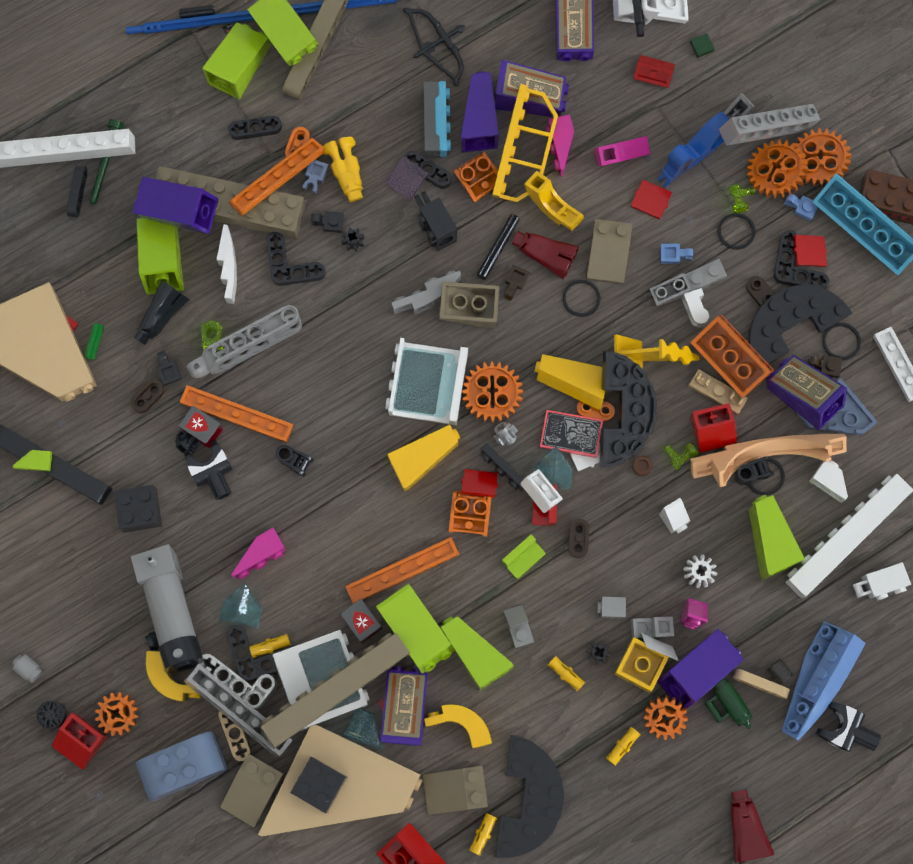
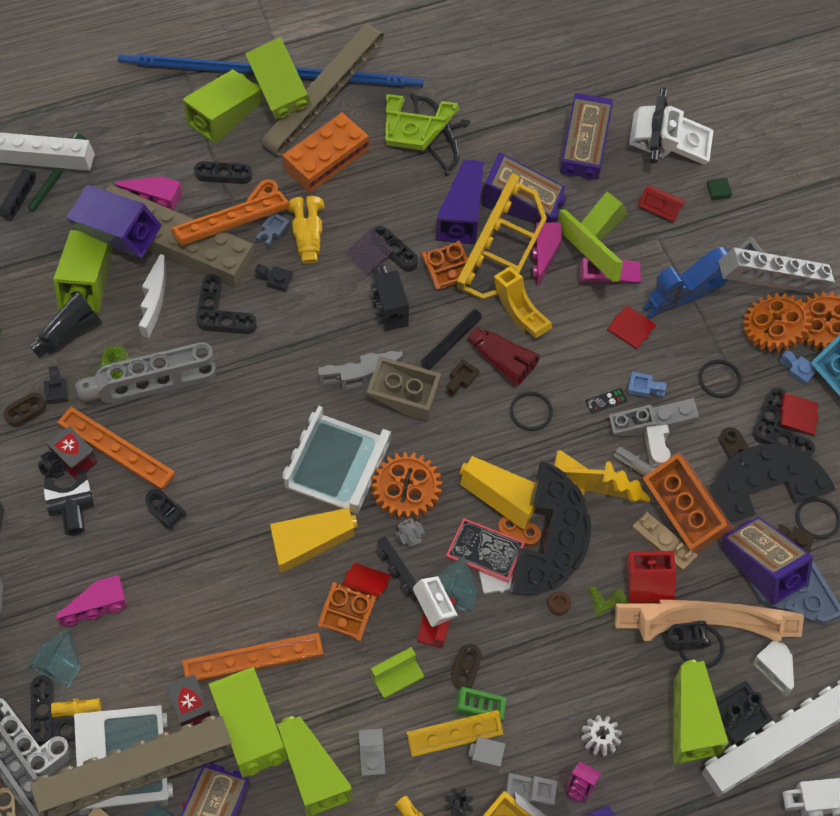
camera: 10 degrees right, 15 degrees down
(197, 11) = (196, 54): black axle -> none
(200, 161) = (155, 189): none -> dark pink slope
(343, 88) = (325, 152): none -> orange brick
(351, 234) = (295, 299): black gear -> none
(415, 47) = (411, 129): none -> lime wing
(435, 121) = (415, 201): piece -> none
(580, 569) = (471, 694): none -> bright green slope
(582, 596) = (454, 733): none -> yellow tile
(602, 135) = (590, 246): none -> lime tile
(604, 103) = (604, 216): none -> lime slope
(609, 251) = (572, 367): dark tan slope -> none
(643, 274) = (606, 401): none -> black sticker
(675, 516) = (584, 664): white slope -> none
(679, 327) = (633, 461): none -> light grey axle
(740, 206) = (730, 353): clear neon green piece -> none
(809, 526) = (742, 712): none -> black plate

